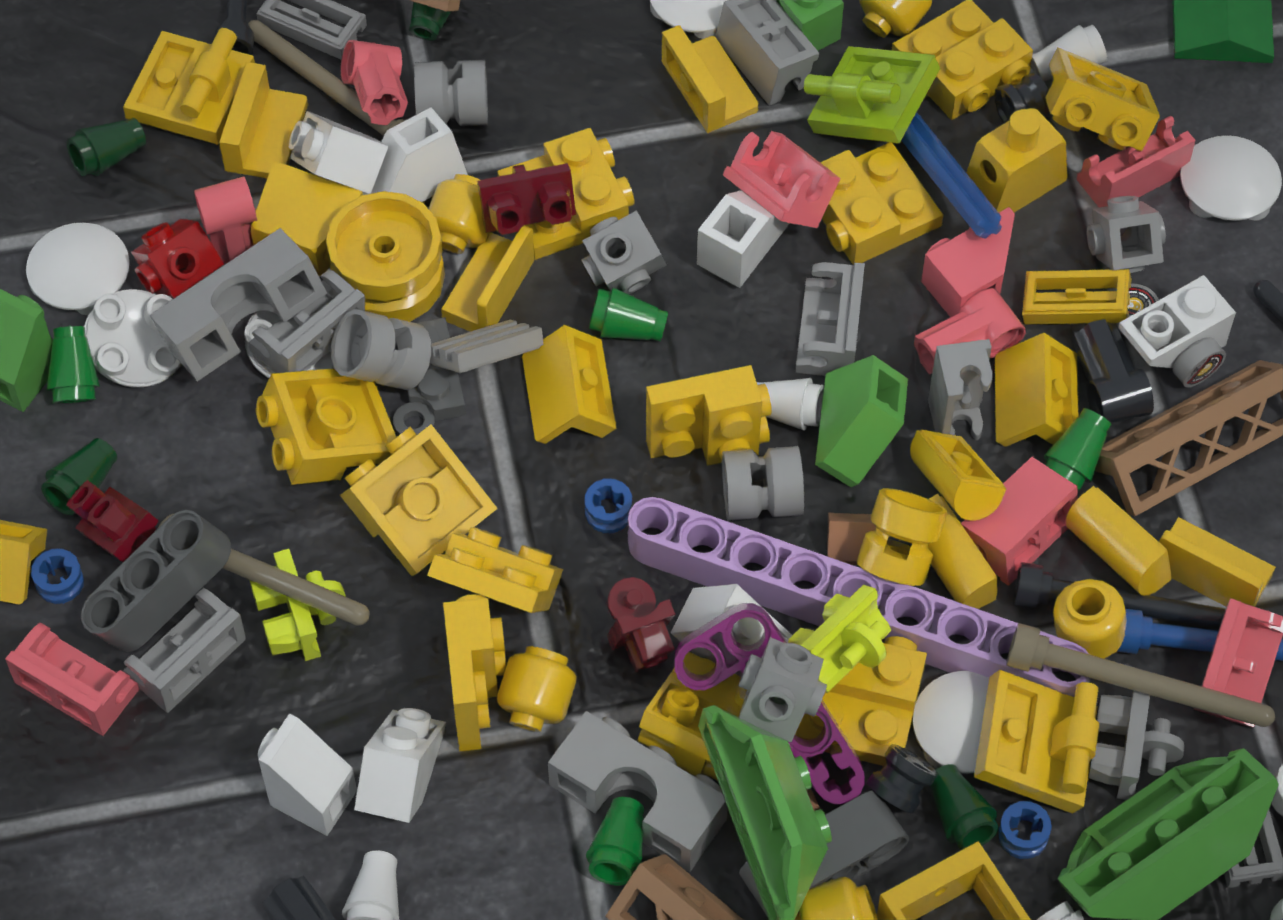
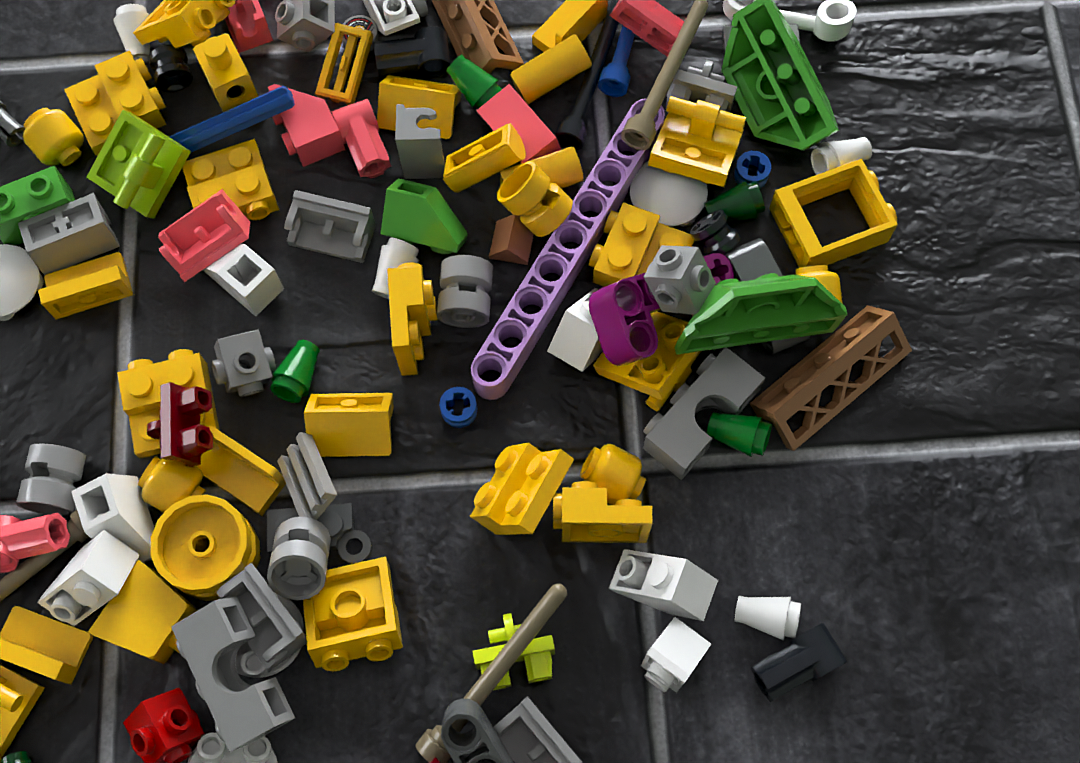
camera: 80 degrees left, 10 degrees up
(227, 216) = (137, 675): coral piece -> none
(417, 497) = (433, 547): yellow plate -> none
(639, 624) = (578, 388): dark red hips -> none
(848, 636) = (606, 235): neon yellow hips -> none
(1091, 616) = (609, 96): yellow head -> none

